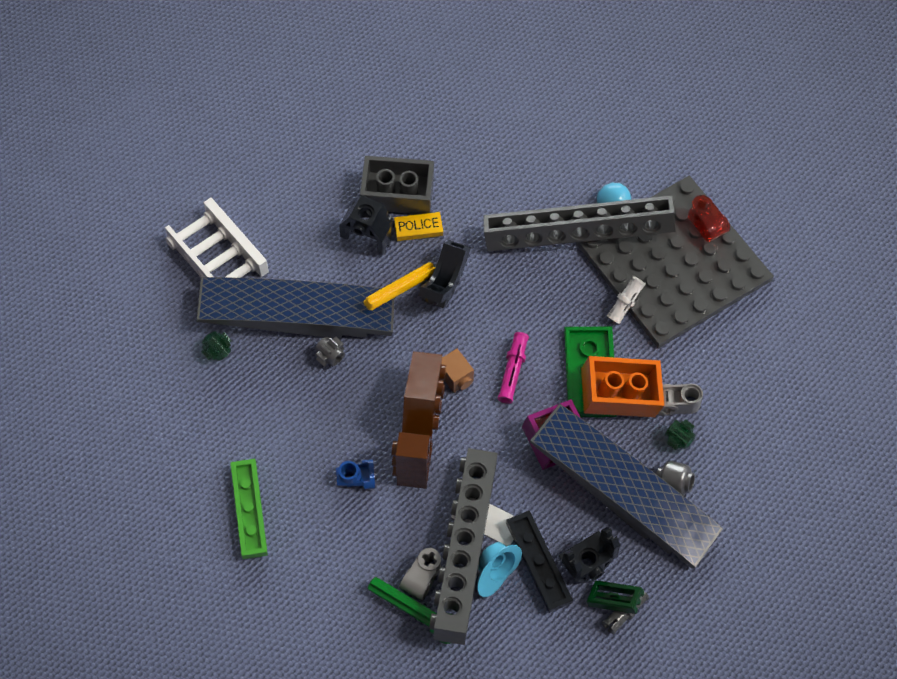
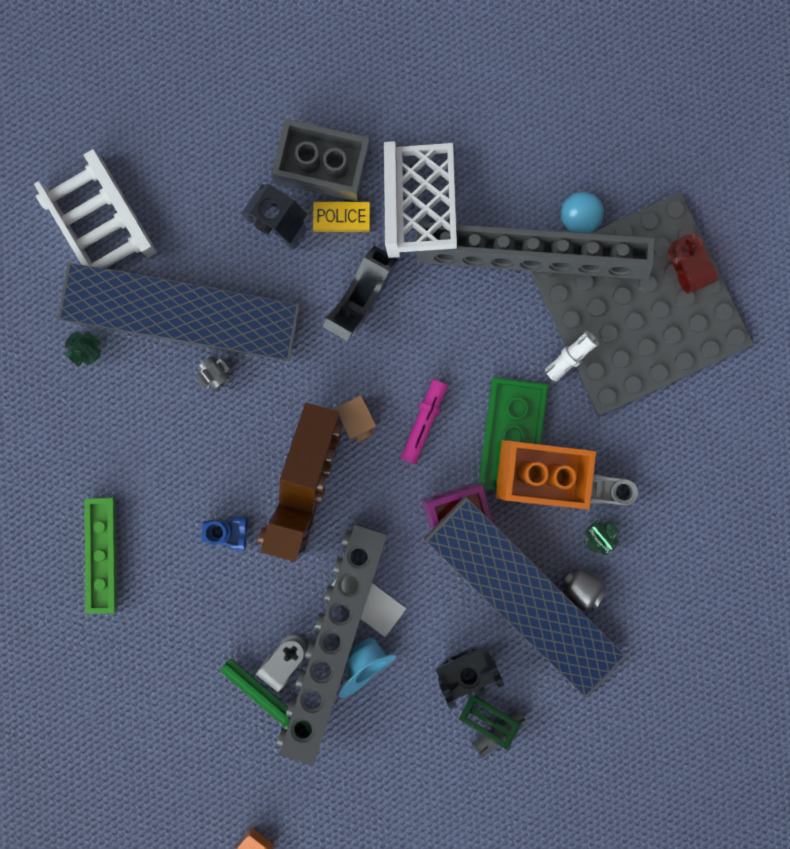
camera: 10 degrees right, 25 degrees up
(399, 286) = (304, 303): yellow axle -> none
(463, 207) = (396, 204): none -> white fence
(539, 561) = (414, 665): black plate -> none

